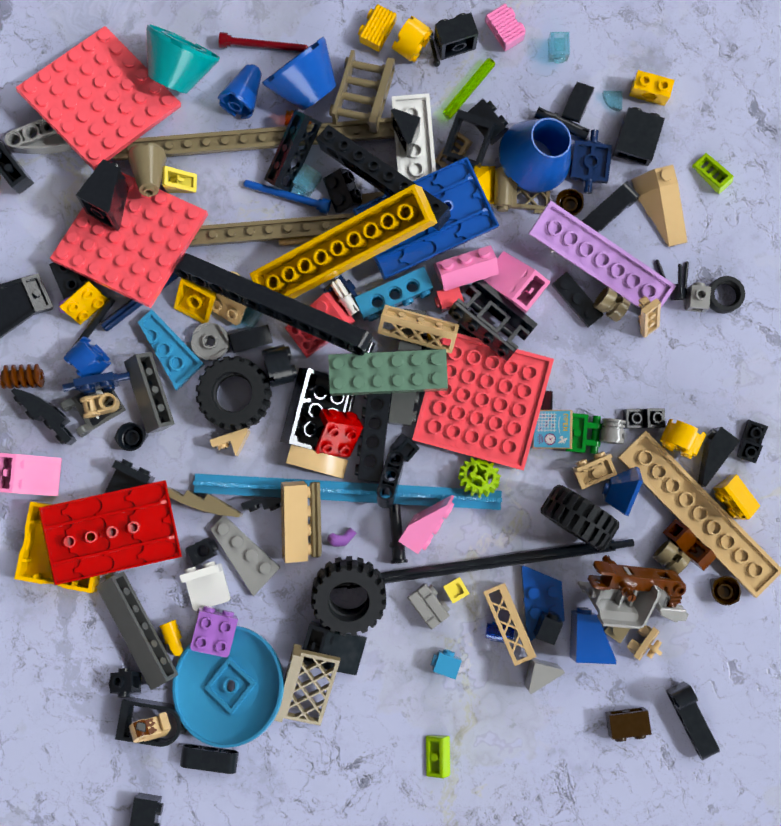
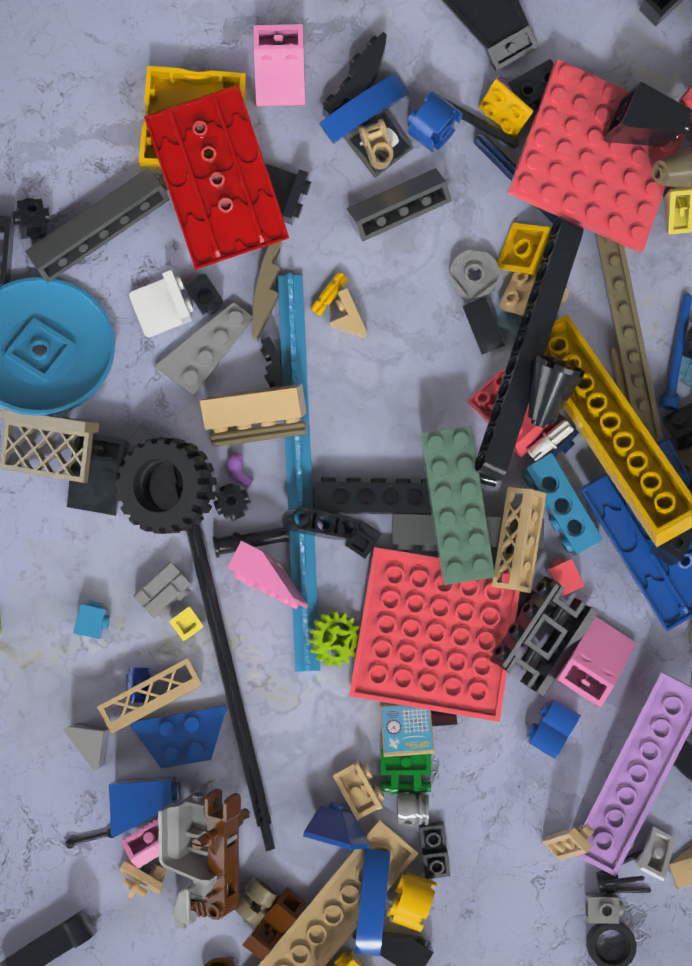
camera: 75 degrees right, 0 degrees up
(22, 377) = (402, 43): reddish brown piece -> none
(70, 413) = (363, 108): none -> blue slope
(89, 384) = (401, 129): dark blue plate -> none
(130, 436) = (340, 188): black hat -> none
(172, 637) = (93, 270): yellow hinge -> none
(175, 356) = (452, 230): dark azure wing -> none
(212, 454) = (329, 294): none -> yellow axle
(214, 631) = (104, 321): medium lavender bracket -> none
(216, 375) = (409, 279): black tyre -> none
(278, 365) = (452, 364): black brick -> none
(306, 289) = (551, 388): none -> black cone
(309, 397) = (389, 419): black slope -> none
(316, 462) = (333, 428): tan slope -> none
(339, 433) = (372, 451): red bracket -> none
(369, 538) = (237, 510): none -> black brick
(467, 268) = (606, 595): bright pink slope -> none
(548, 627) = (150, 746): black brick -> none
(561, 319) = (553, 728): none -> blue brick
(577, 299) = (582, 747): black plate -> none
(580, 517) = (294, 773): black tyre -> none
(613, 305) = (581, 792): dark tan wheel -> none
(615, 696) = (70, 843): none -> black hinge
(623, 639) = (143, 845): none -> bright pink brick
(628, 723) = (36, 862): dark brown brick -> none
(662, 253) = (656, 853): none -> white slope
(680, 468) = (372, 902): none -> blue slope

